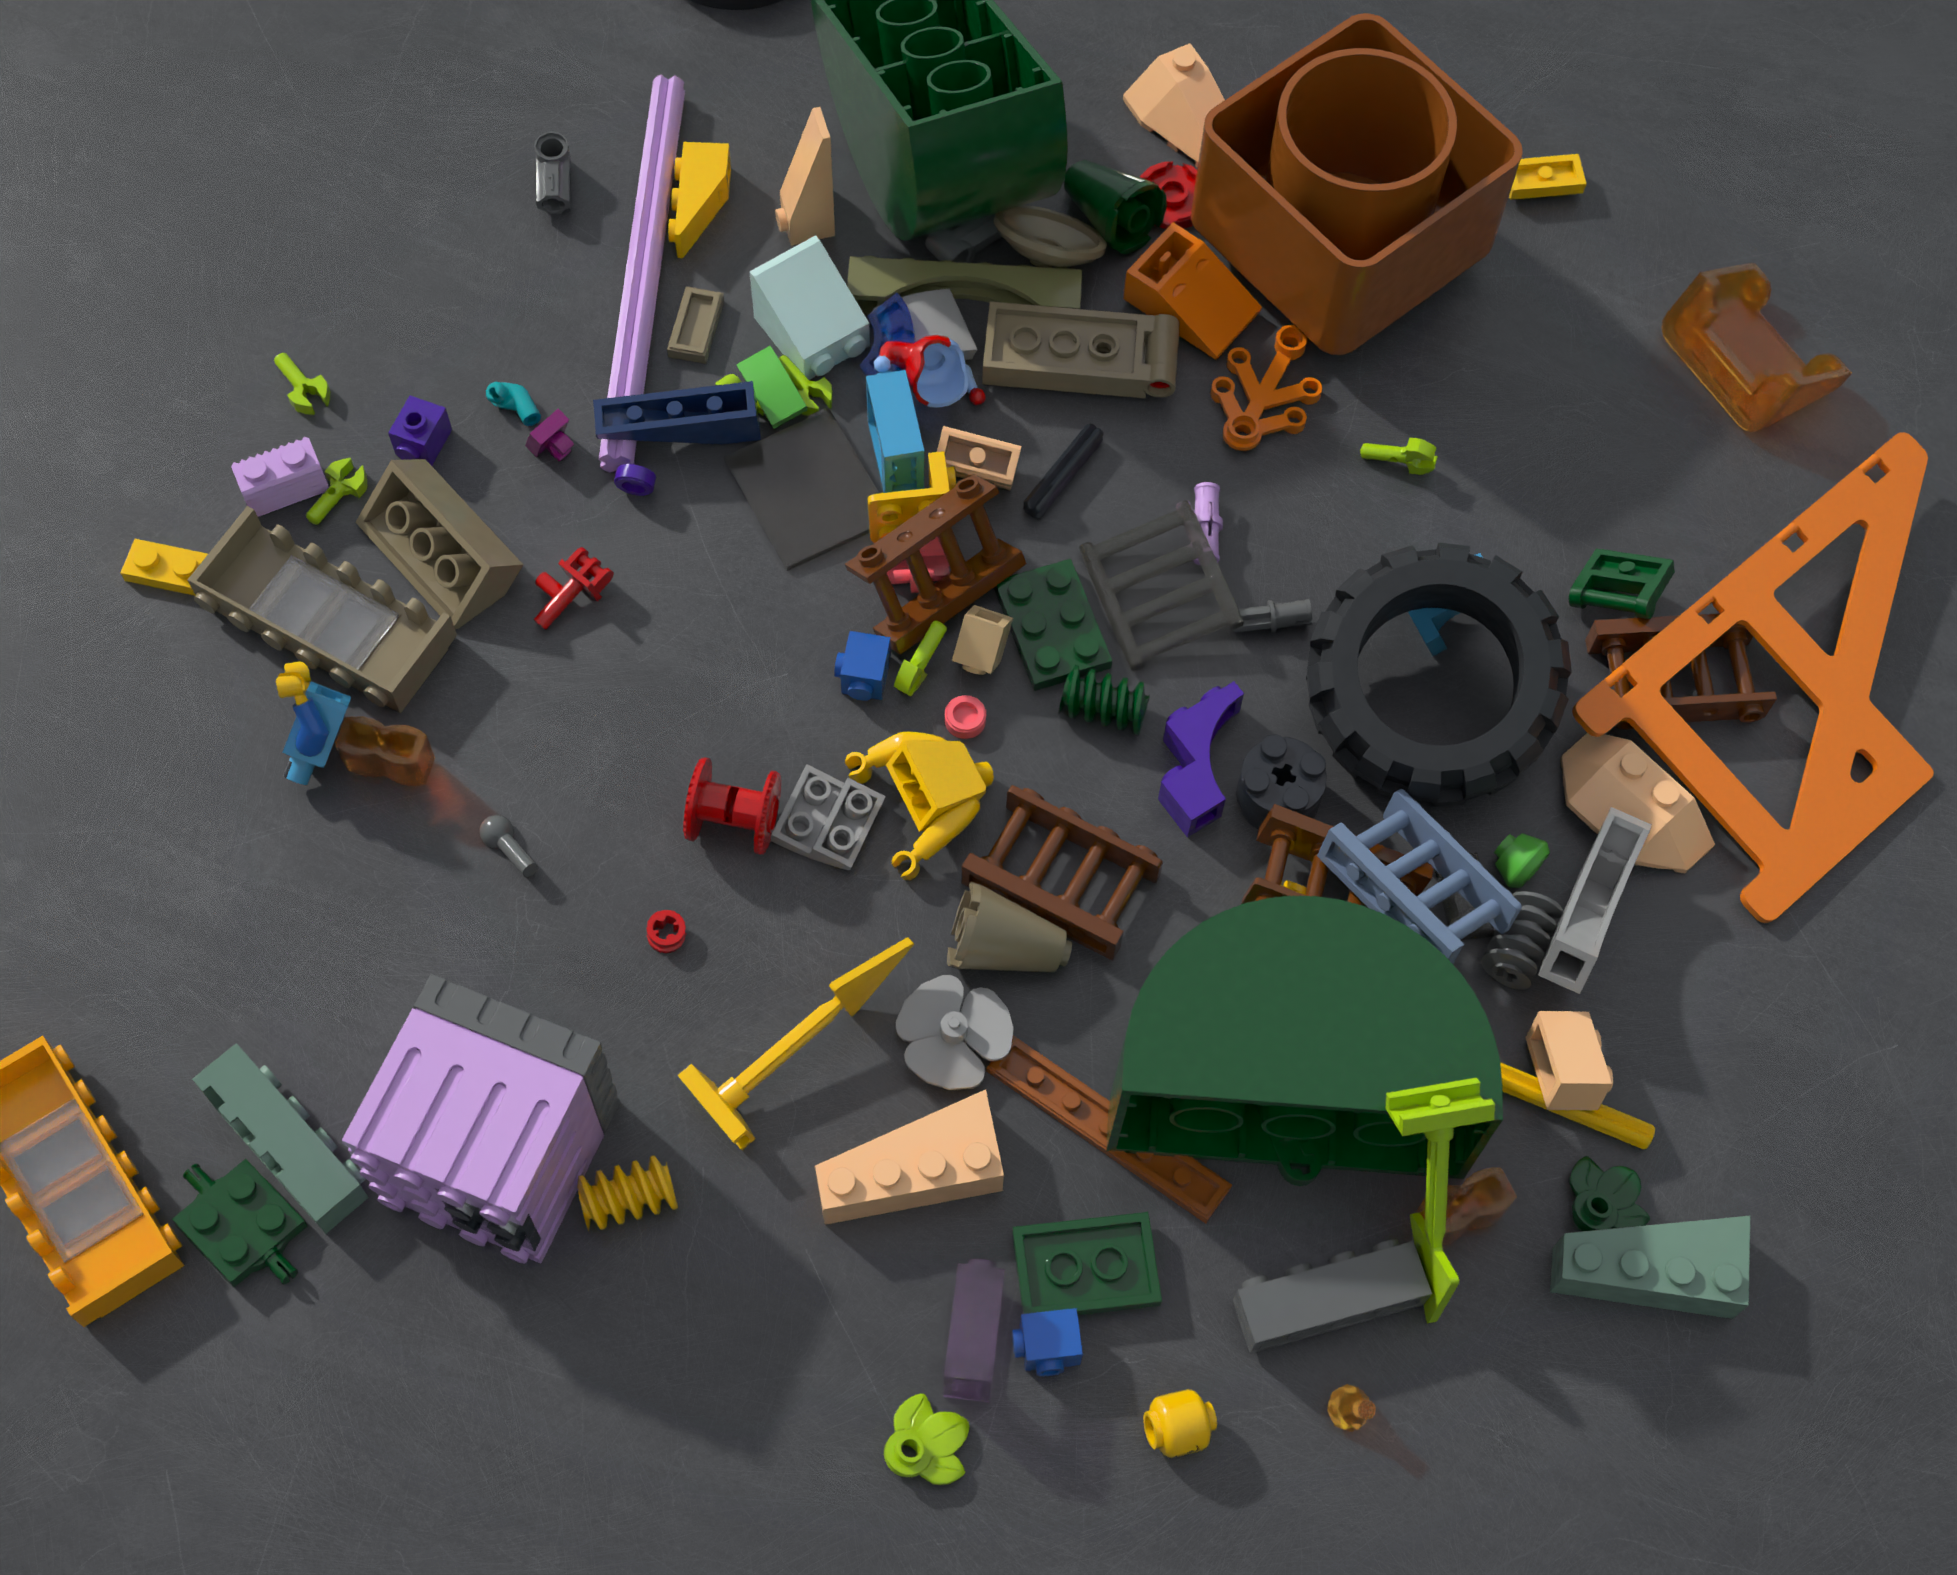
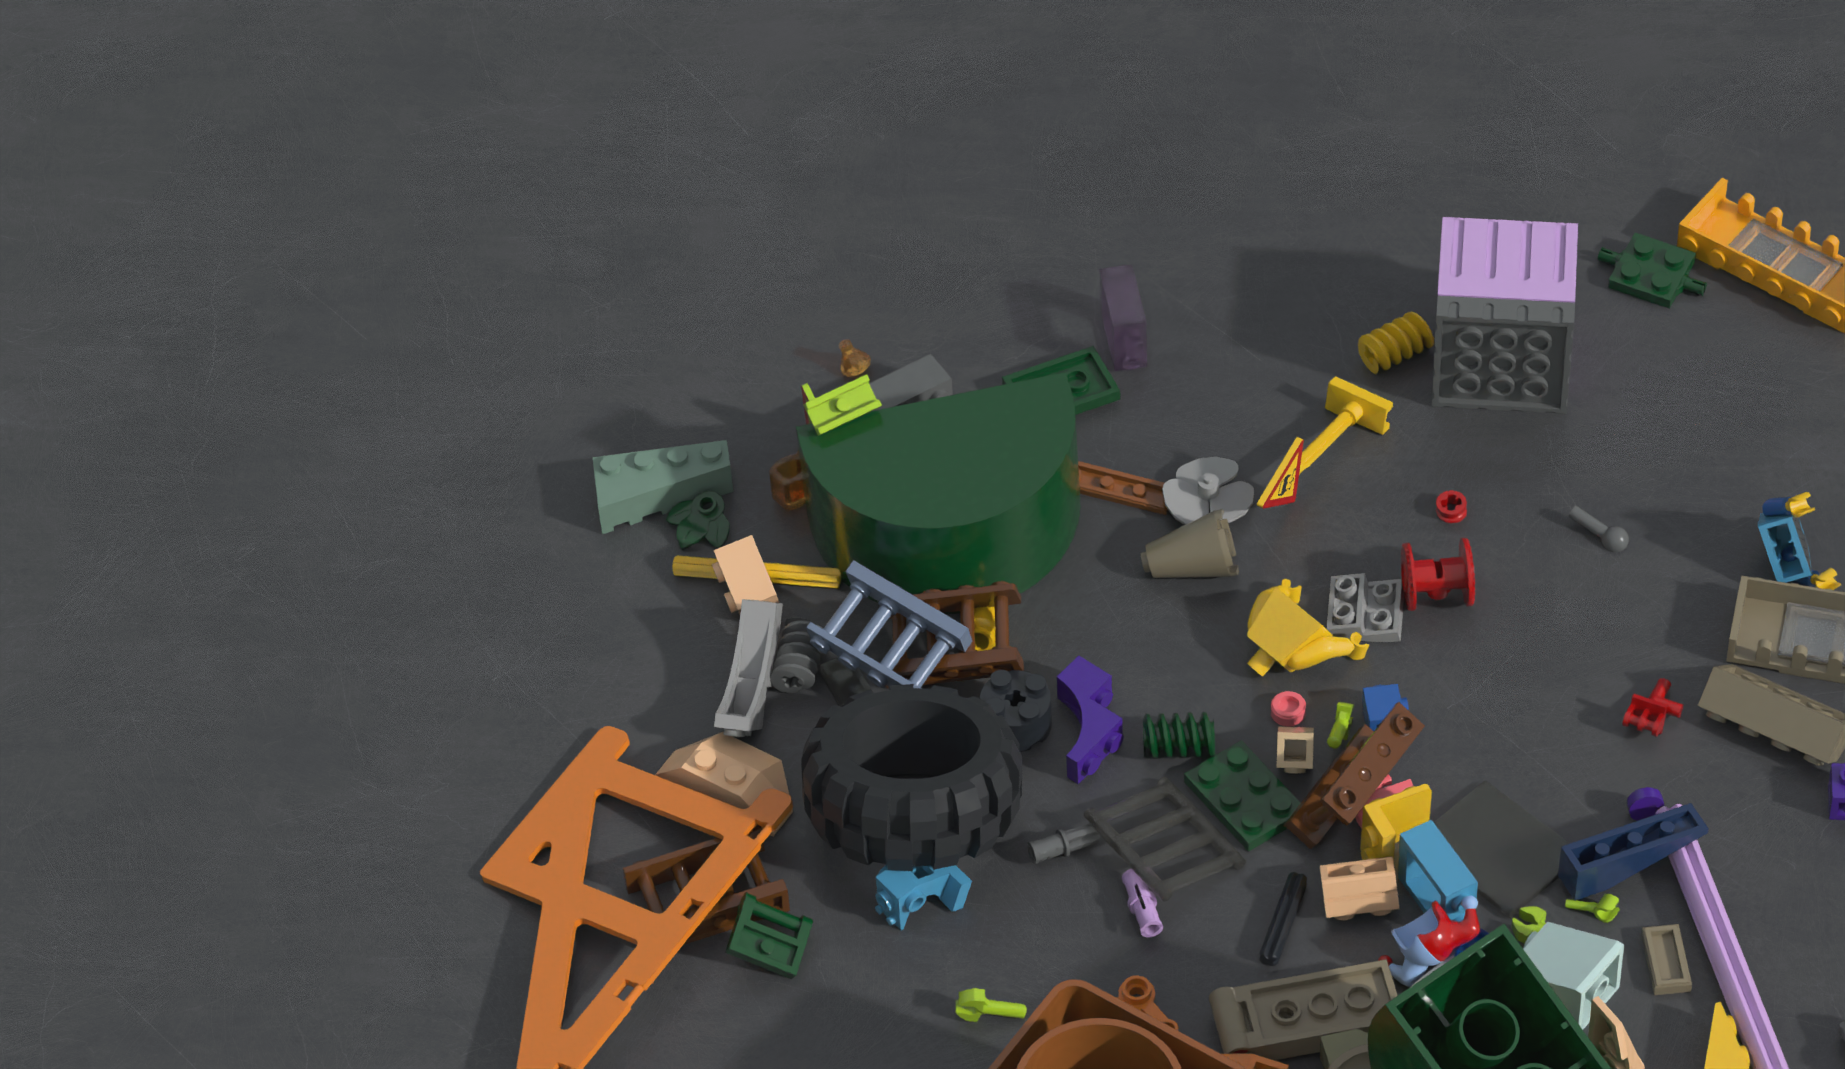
camera: 170 degrees right, 15 degrees down
(282, 1138) = (1651, 308): sand green wedge -> none
(379, 750) = (1723, 546): clear orange brick -> none
(514, 398) = (1787, 850): teal arm -> none
(551, 435) = (1736, 818): magenta tile -> none
(772, 387) = (1567, 907): bright green slope -> none
(917, 1165) = (1202, 405): light nougat wedge -> none
(932, 1437) = (1146, 276): lime plate -> none
(1048, 1341) = (1070, 335): blue brick -> none
(1094, 932) = (1168, 585): reddish brown fence -> none
(1179, 1423) = (968, 318): yellow head -> none
(1520, 858) = (807, 709): bright green cone -> none

